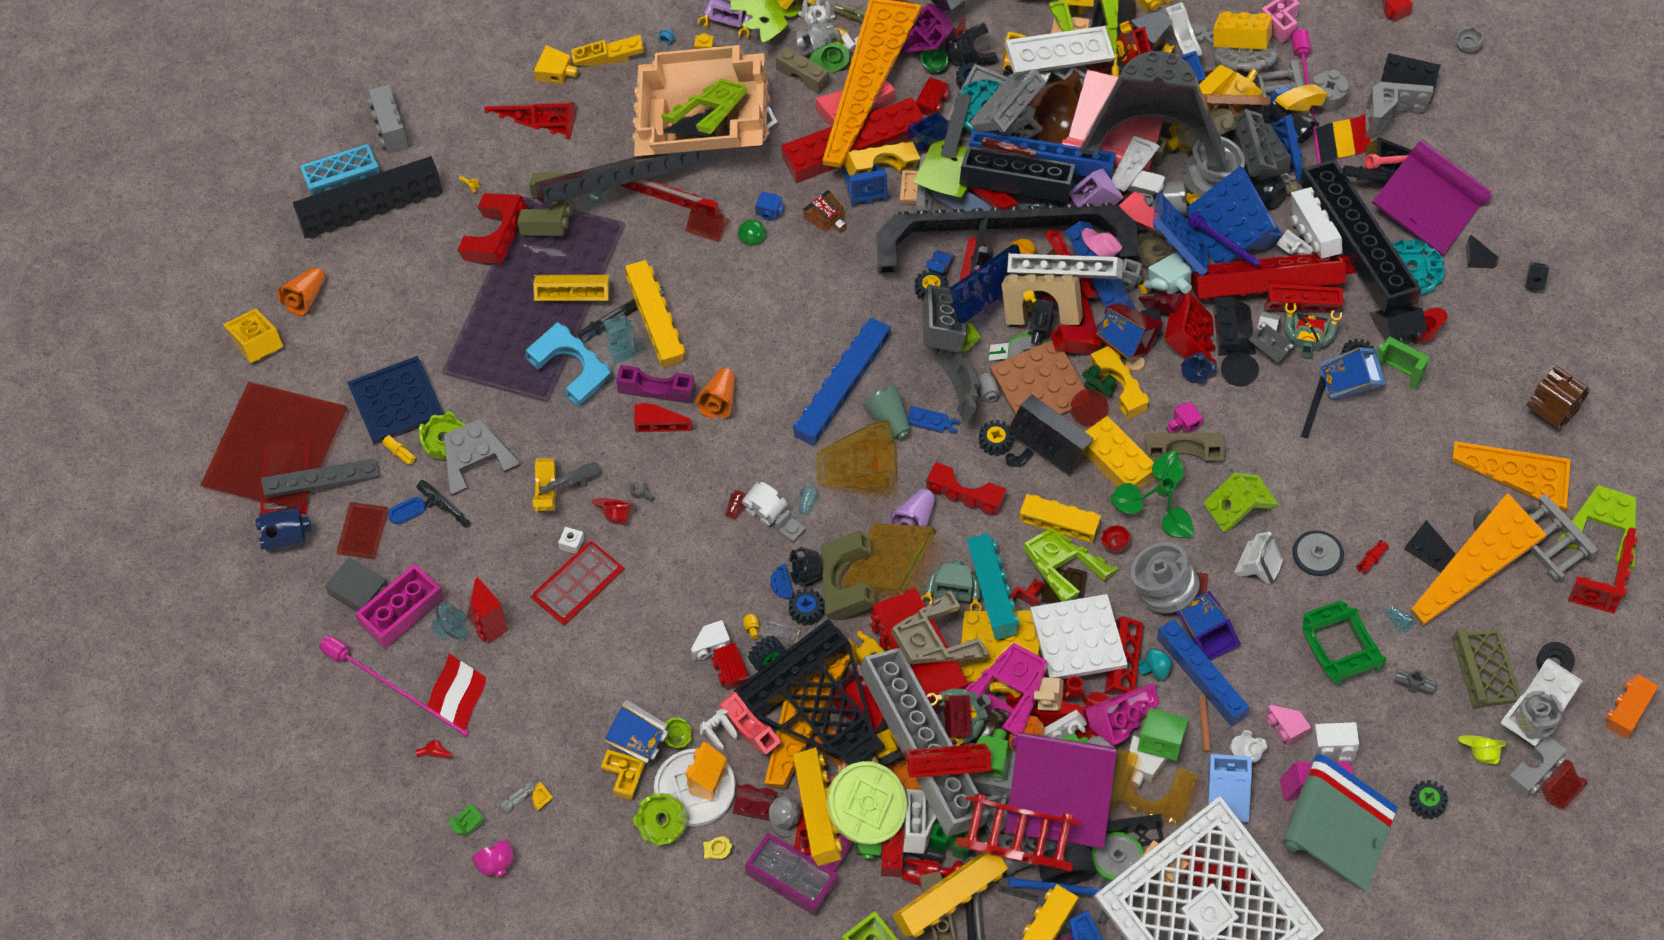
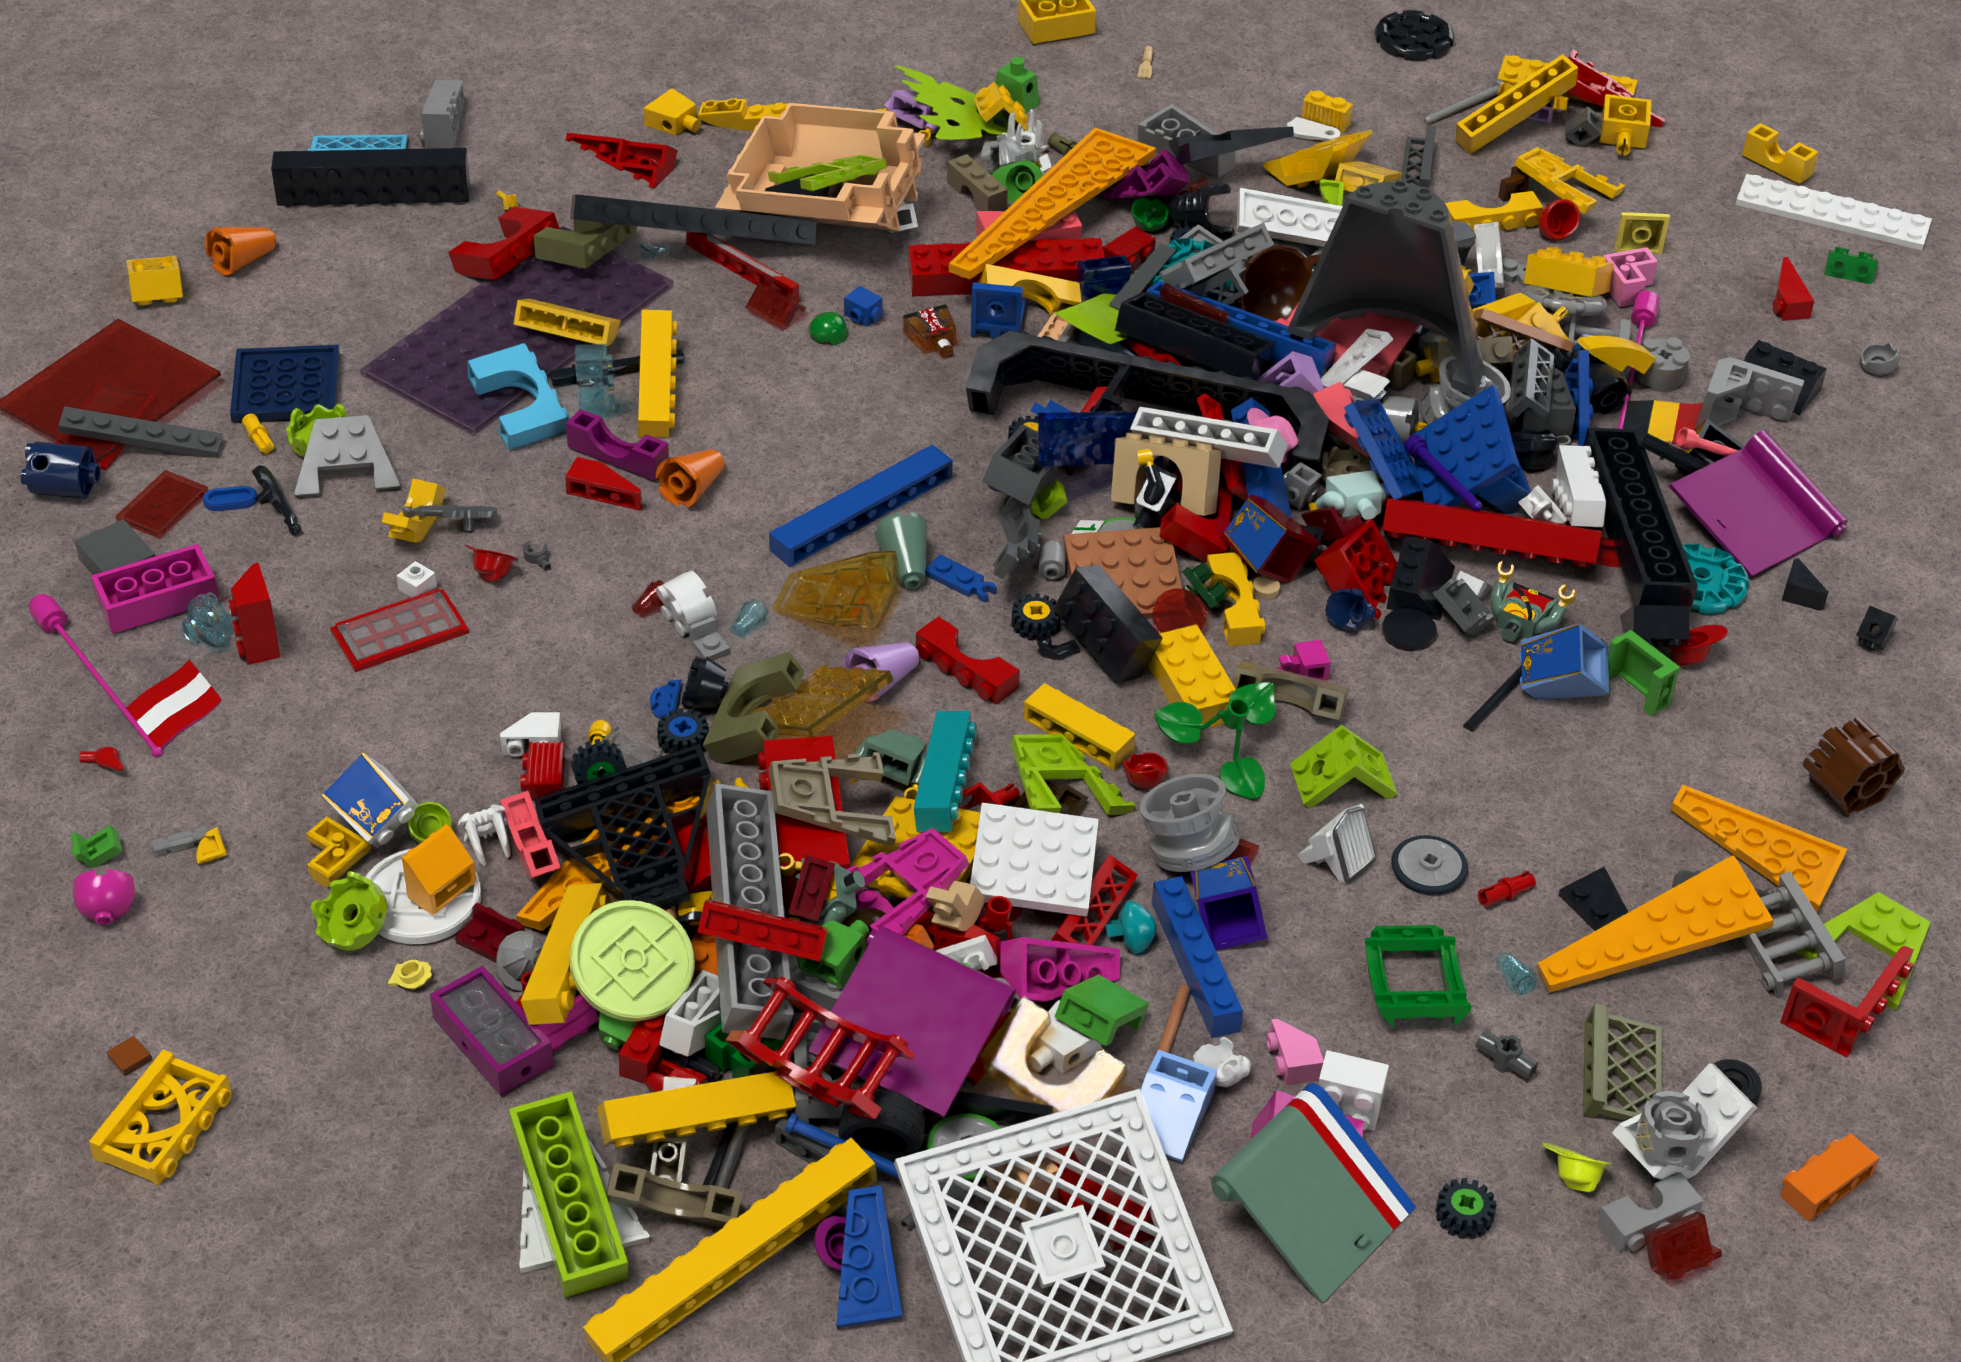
camera: 15 degrees right, 15 degrees down
(1305, 297) = (1531, 566): red fence -> none

